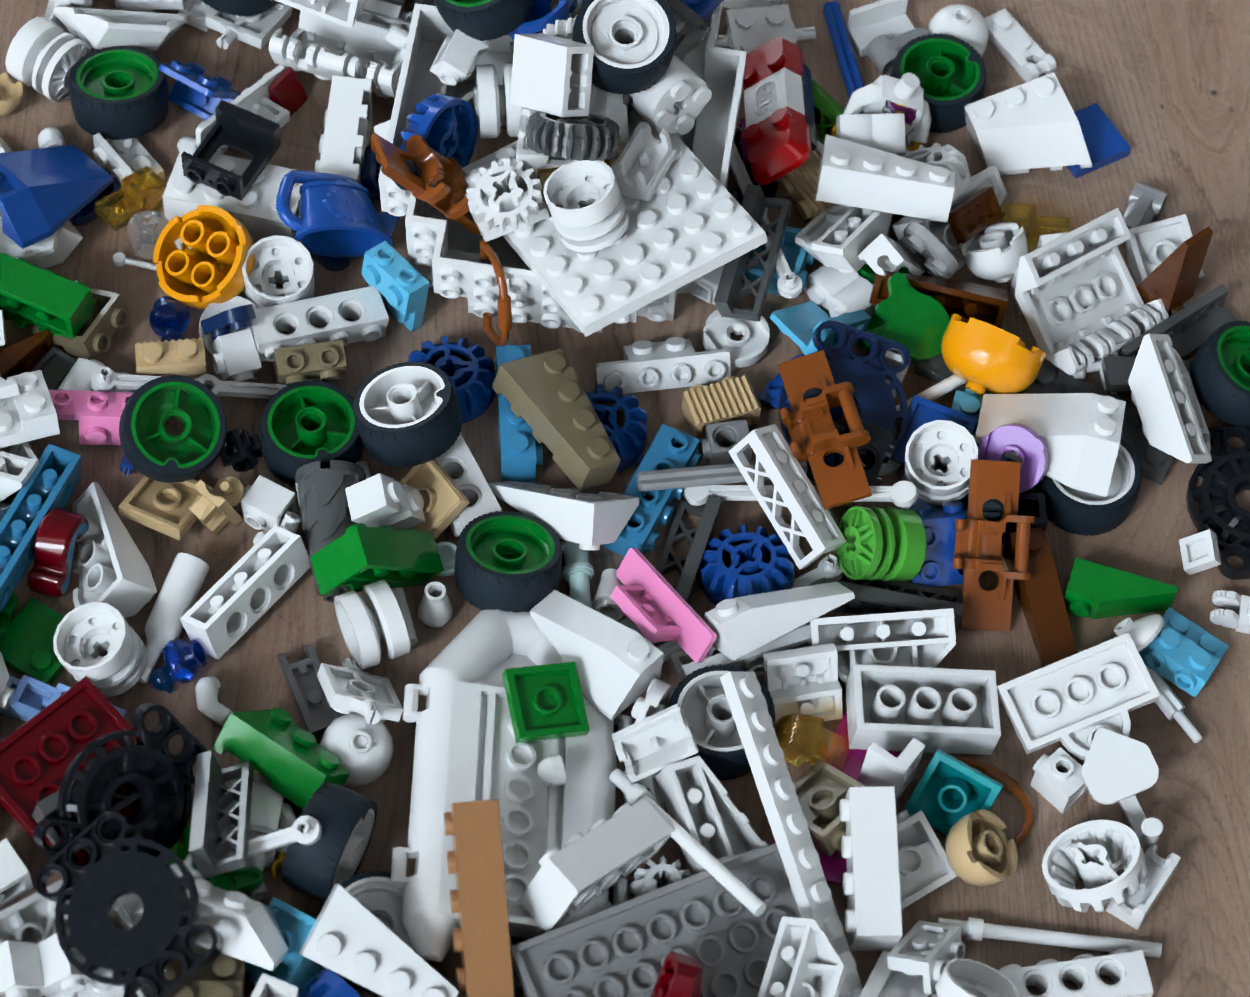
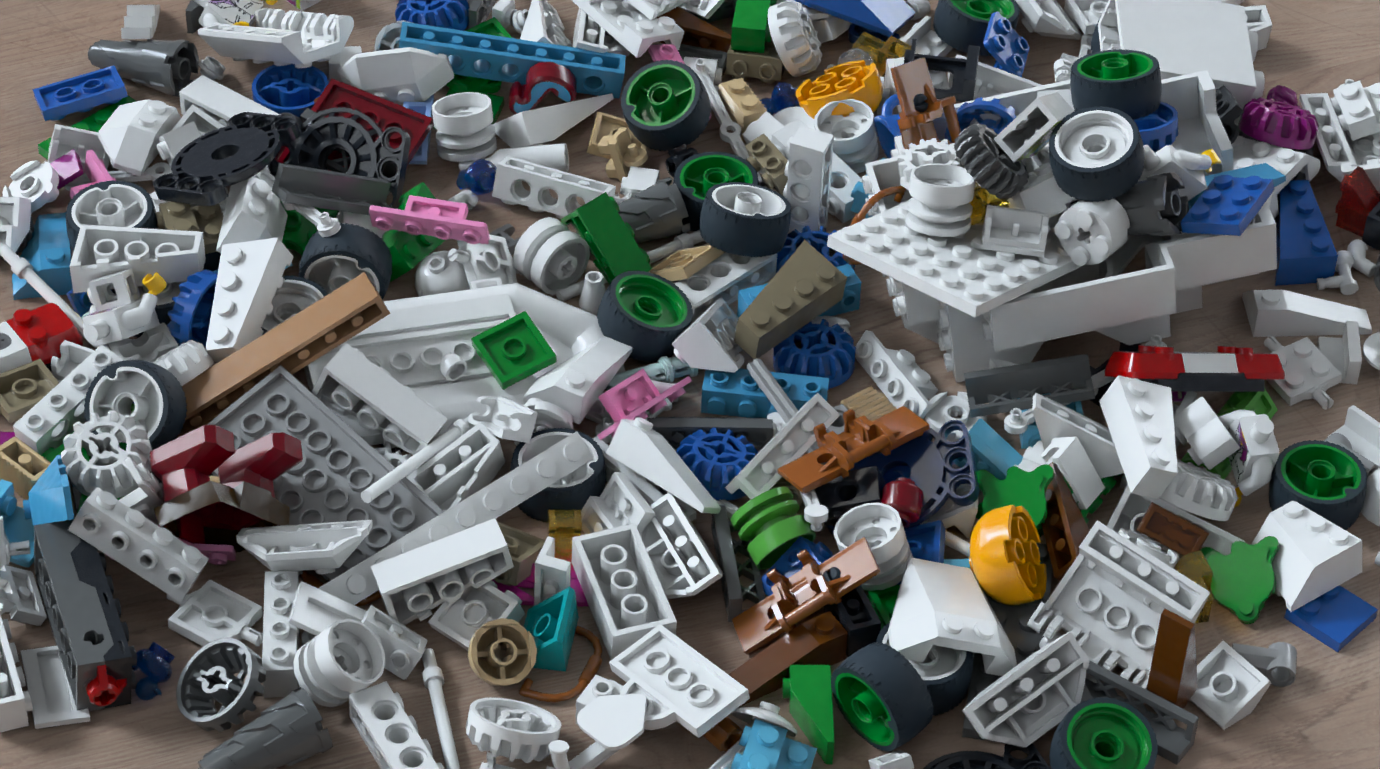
camera: 75 degrees right, 15 degrees down
(91, 266) = (794, 37): none -> white gear
(228, 321) = (783, 110): dark blue plate -> none
(311, 716) = (431, 218): none -> bright pink bracket
(379, 327) = (808, 178): none -> white brick
(385, 503) = (656, 216): white brick -> none
(843, 47) = (1318, 428): blue axle -> none
(894, 415) = (905, 498): none -> dark red head
(934, 253) = (1097, 492): light grey tile -> none
(1027, 443) = (897, 580): medium lavender plate -> none
(1037, 182) = (1244, 577): none -> green tile
(1144, 524) = (882, 696): none -> black wheel

